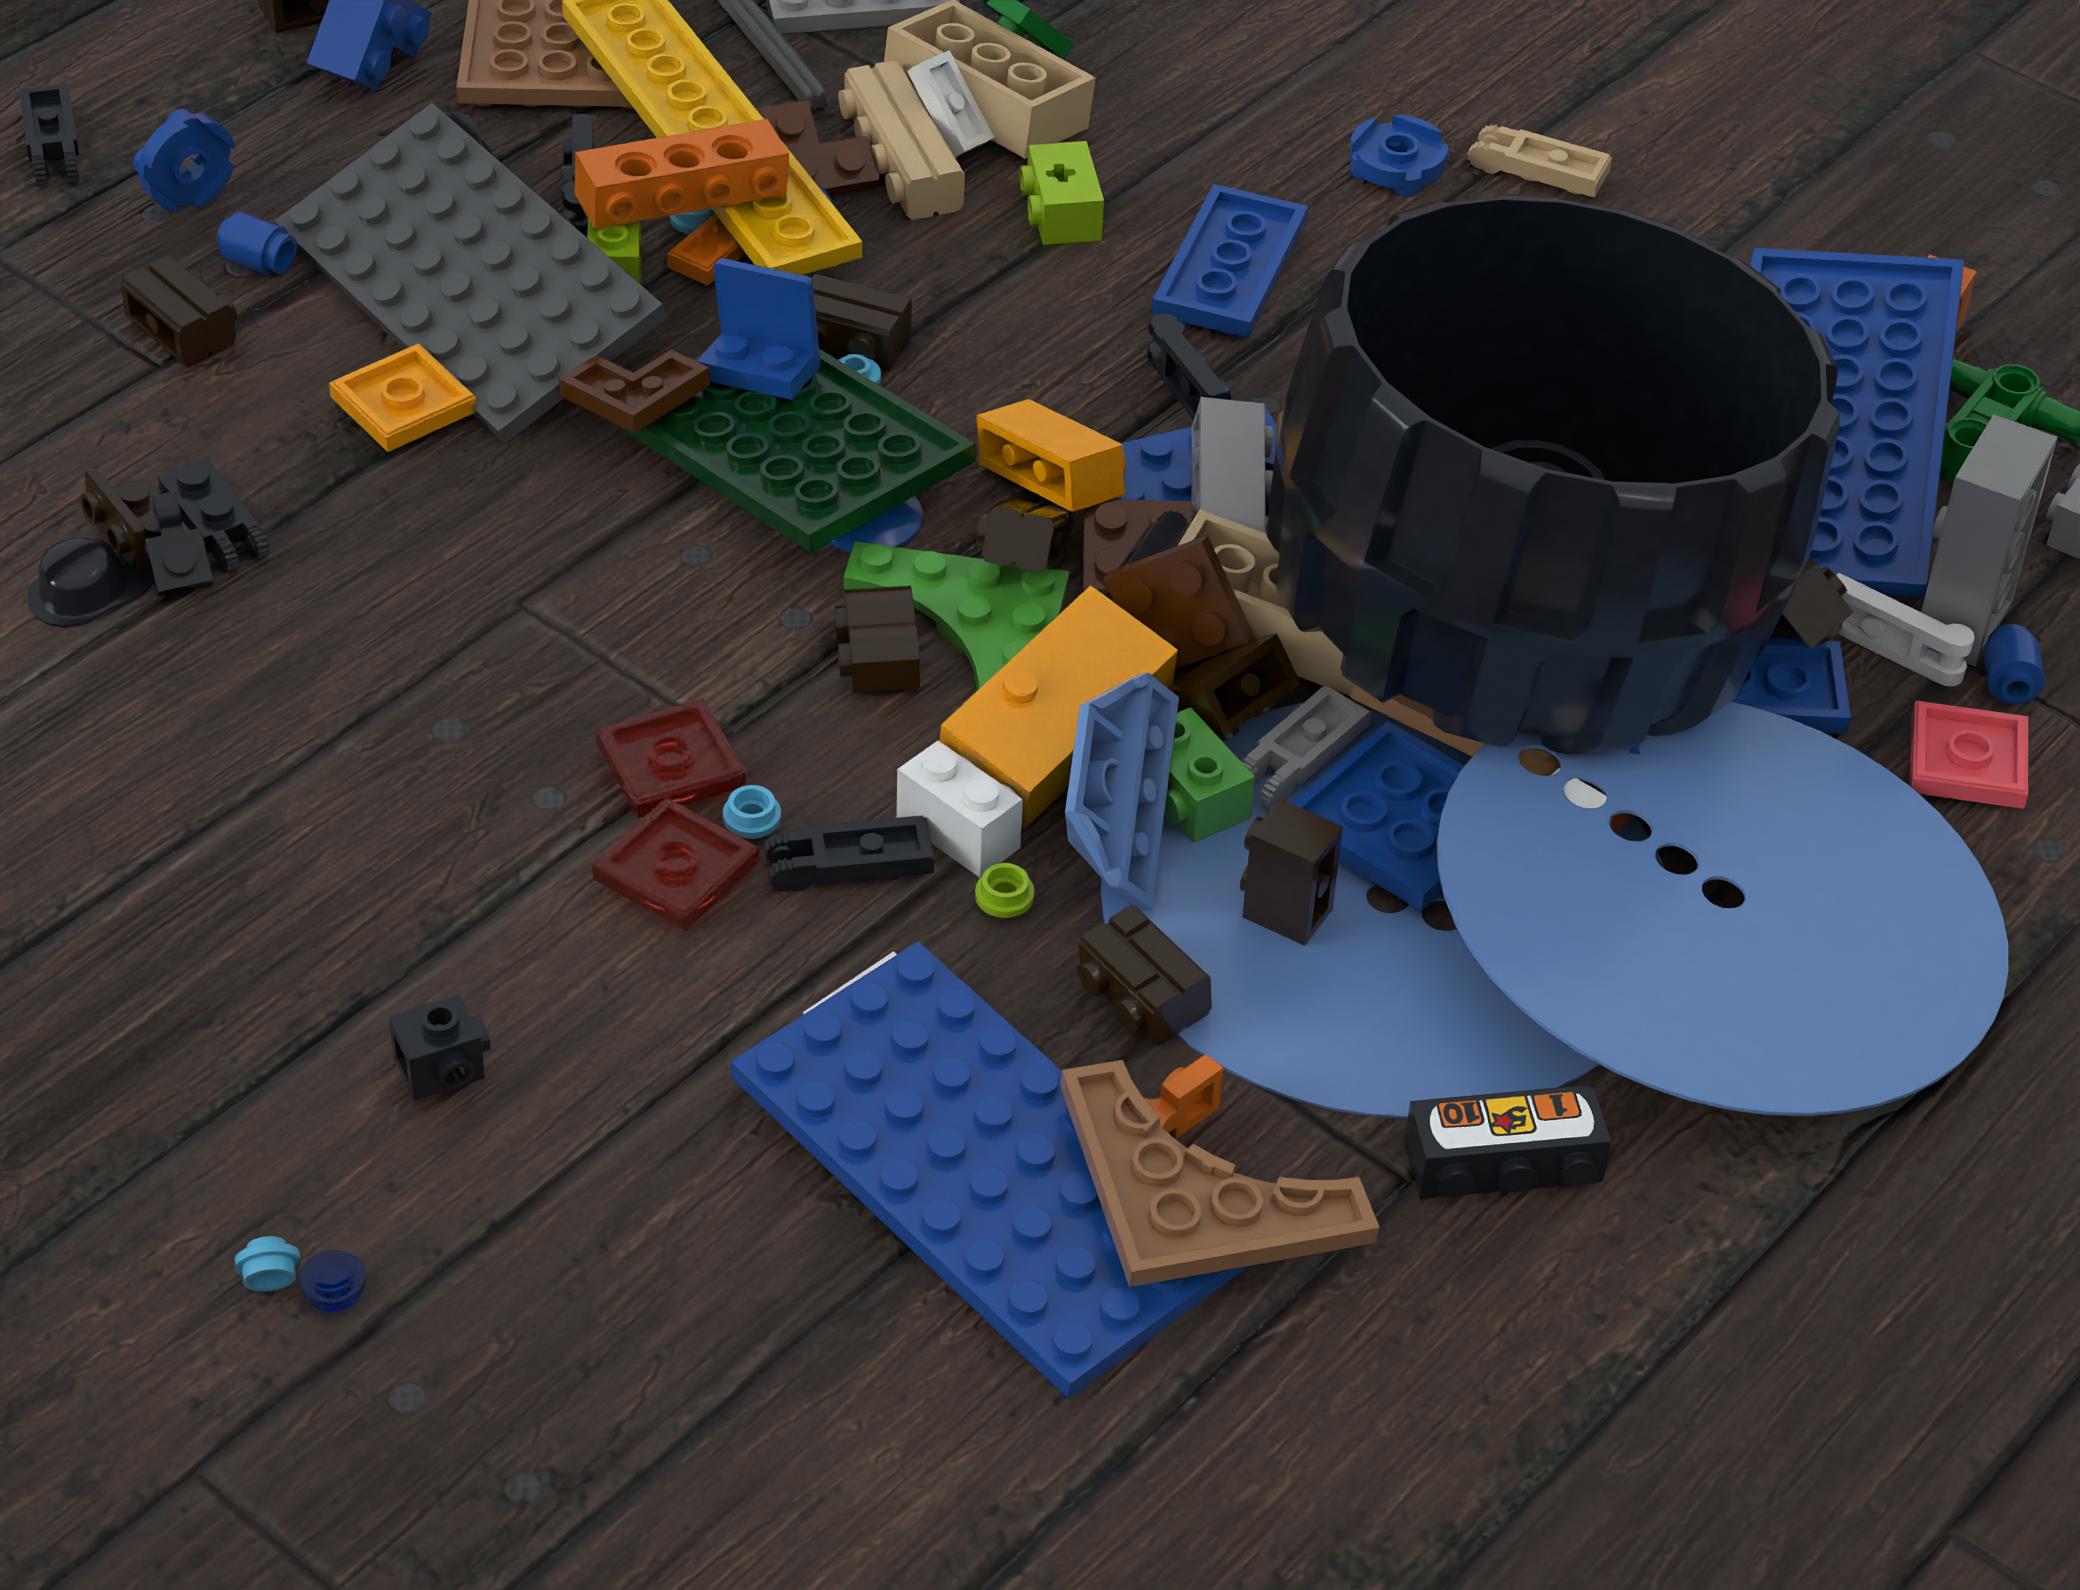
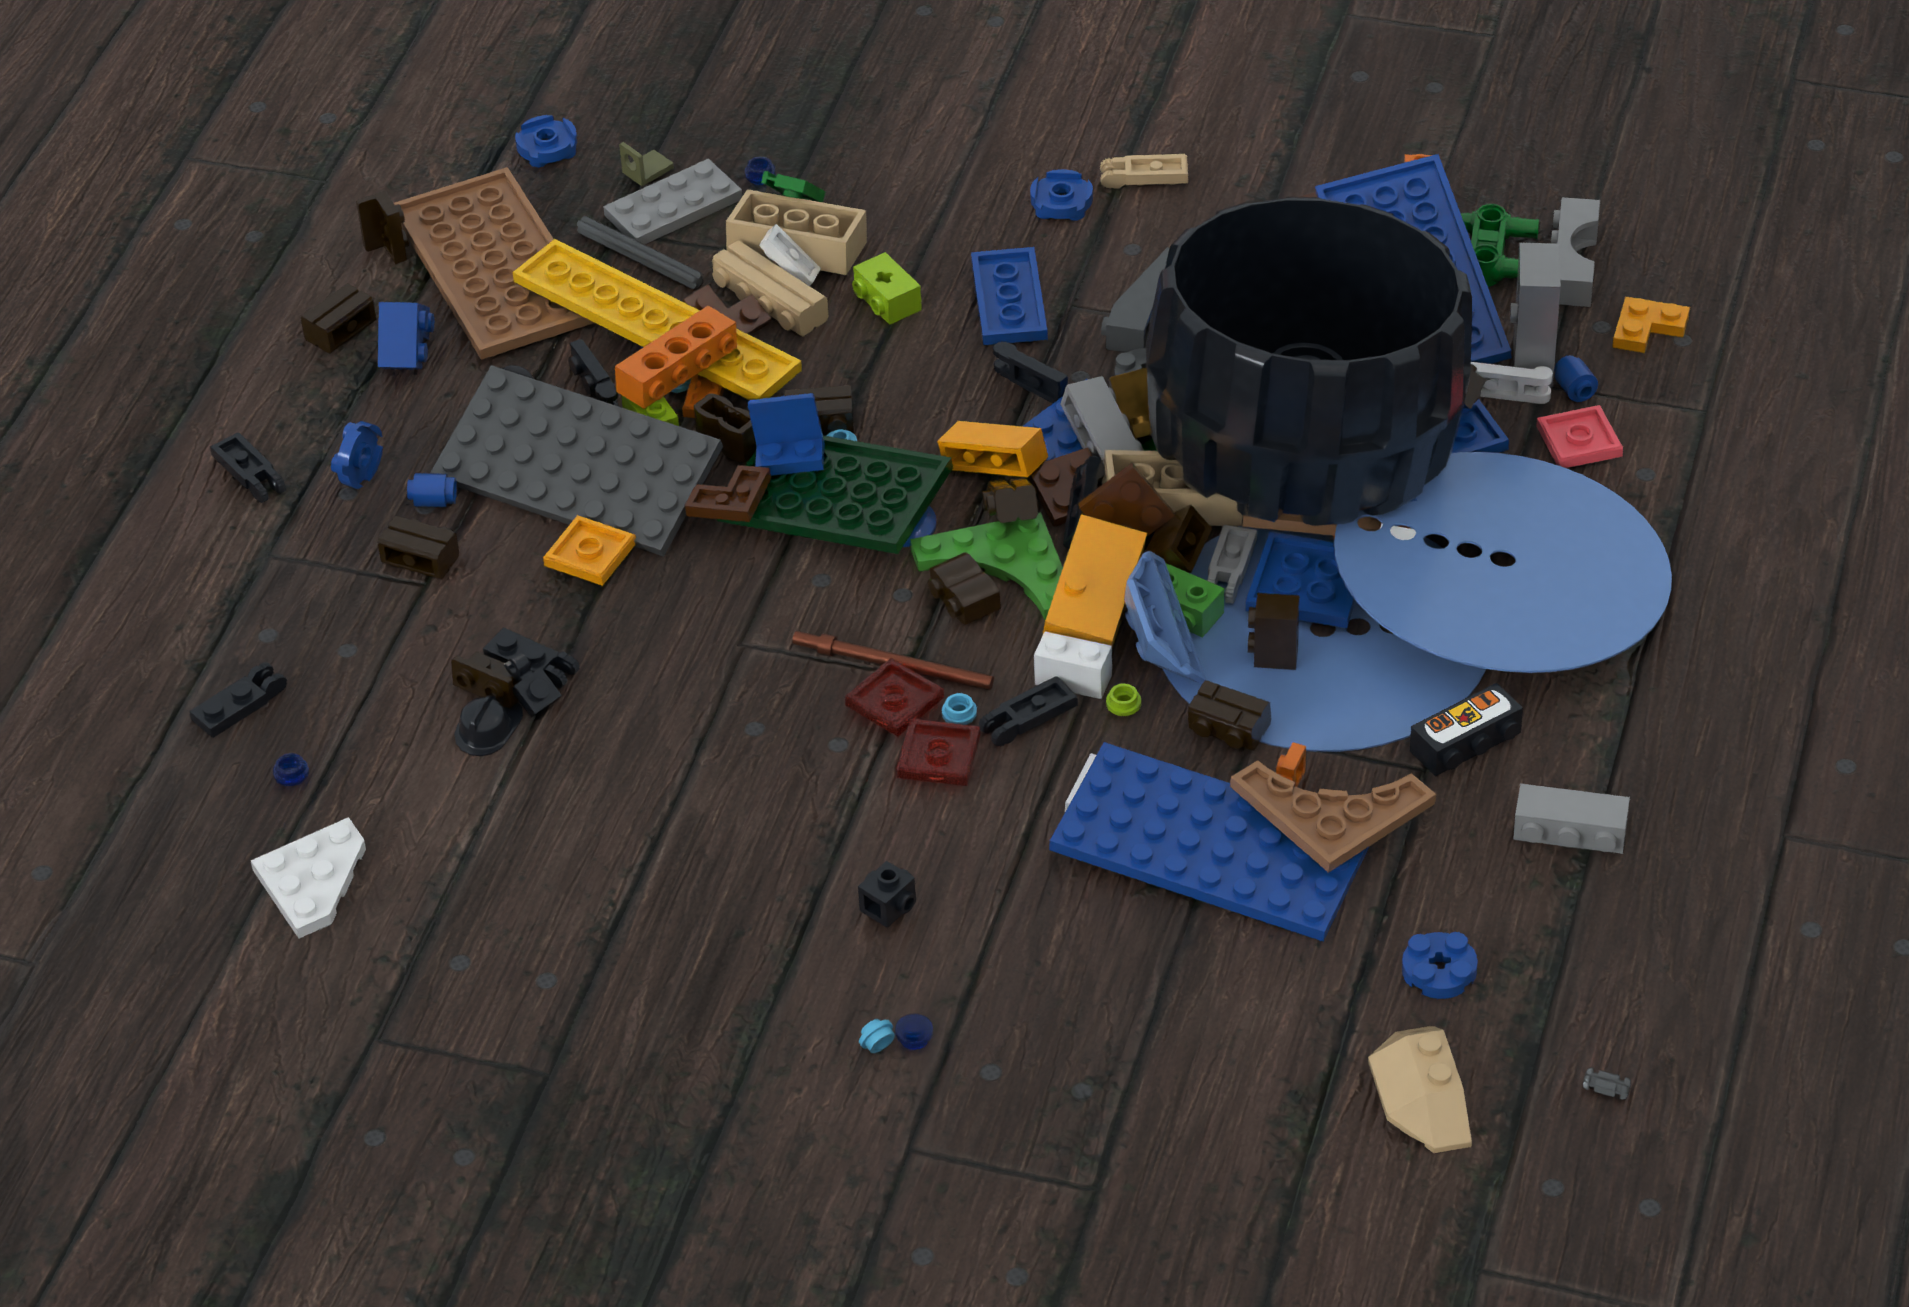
camera: 20 degrees left, 0 degrees up
(637, 650) = (829, 646): none -> copper bar
(693, 292) = (730, 424): none -> dark brown brick
(1233, 1483) = (1439, 947): none -> blue plate
(1591, 1357) = (1571, 818): none -> light grey brick

